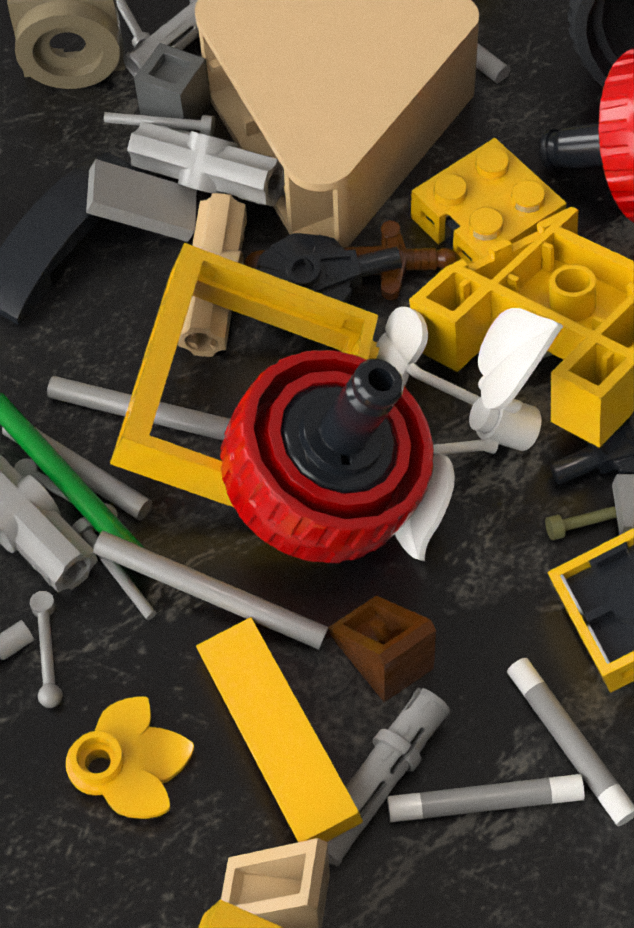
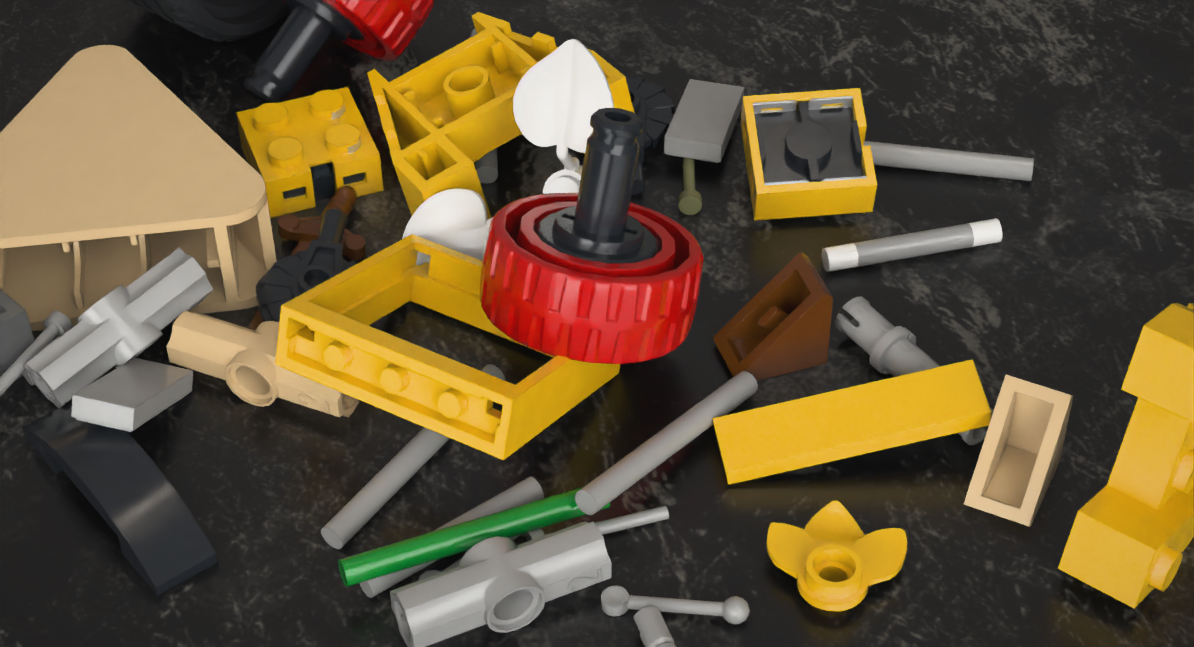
camera: 75 degrees left, 15 degrees down
(485, 798) = (953, 304): light grey bar -> none

